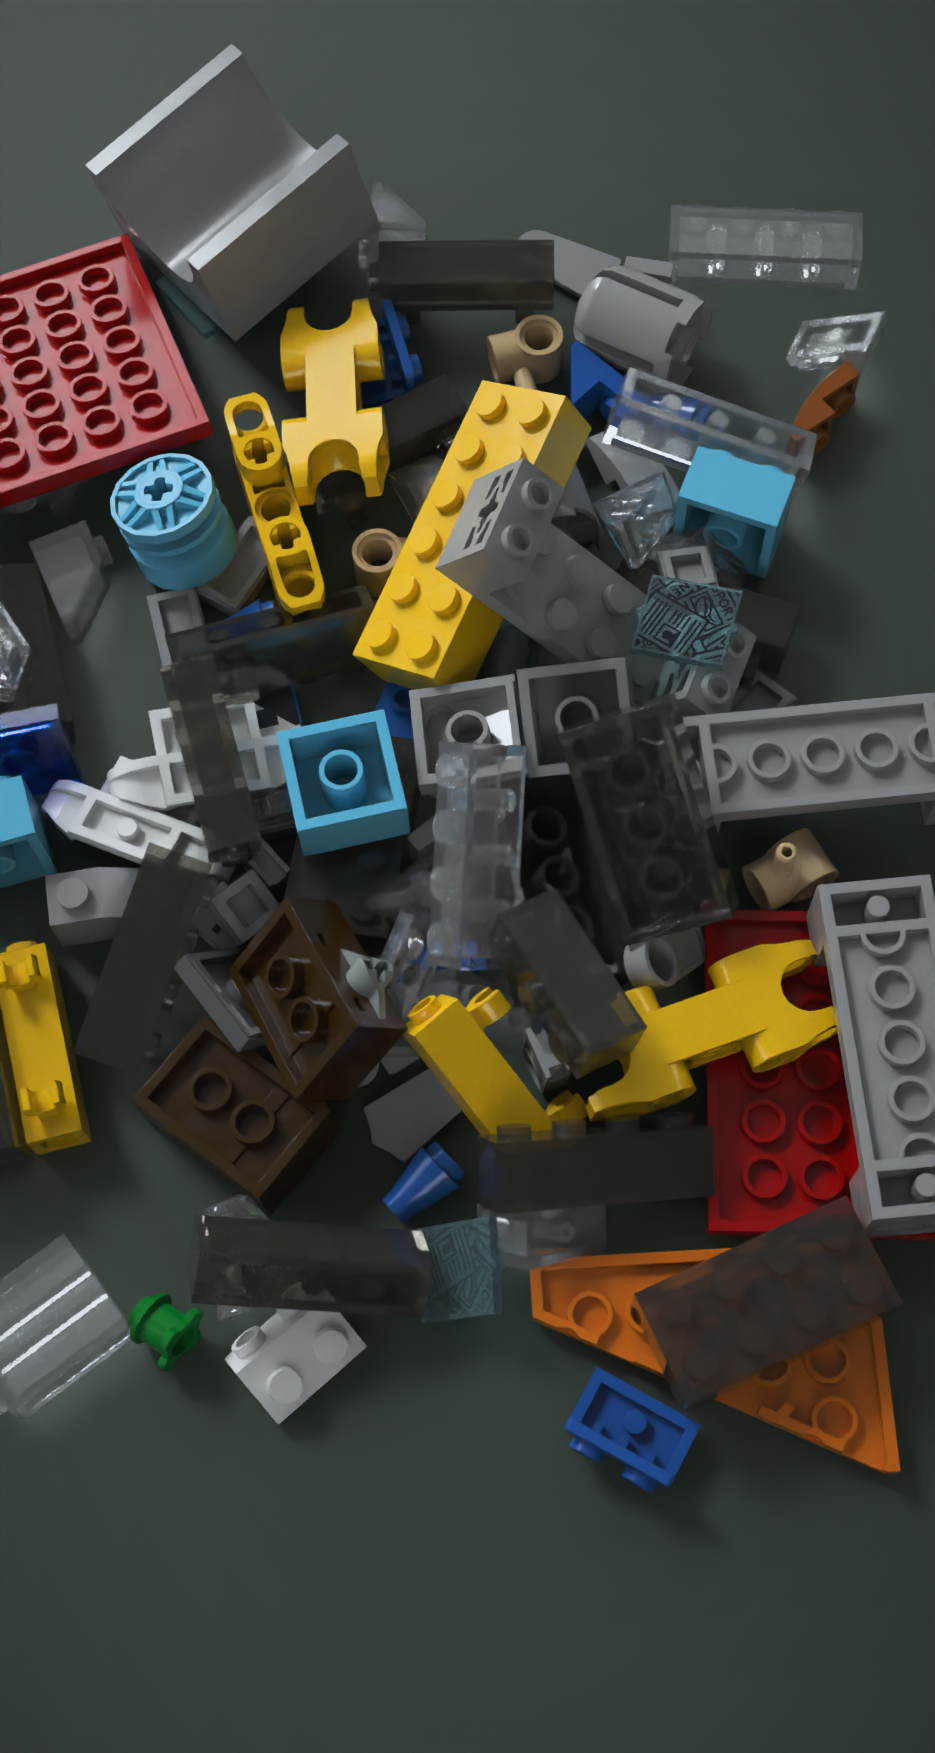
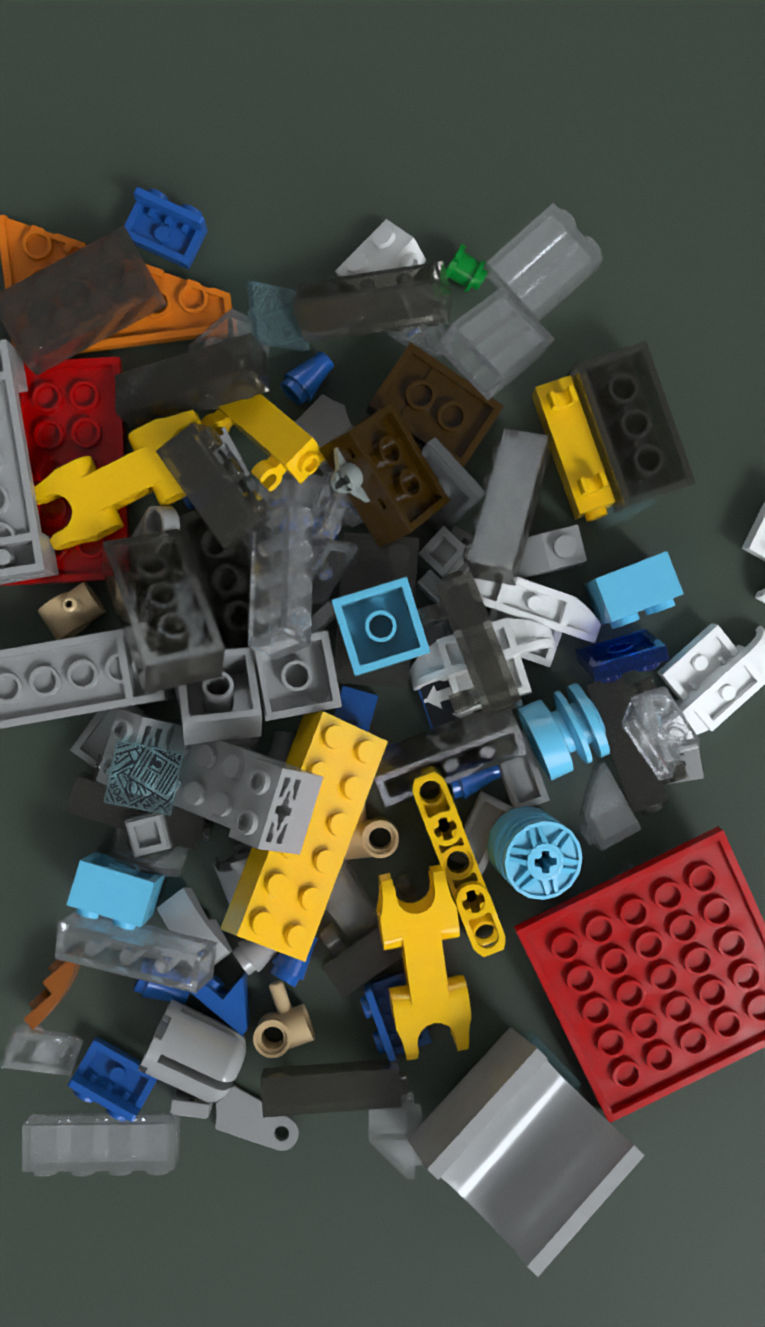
camera: 165 degrees right, 20 degrees up
(110, 664) = (564, 731): none -> medium azure wheel
(130, 1197) = (495, 342): none -> clear brick
(638, 517) = (187, 878): clear slope -> none
(750, 308) = (112, 1081): none -> blue bracket

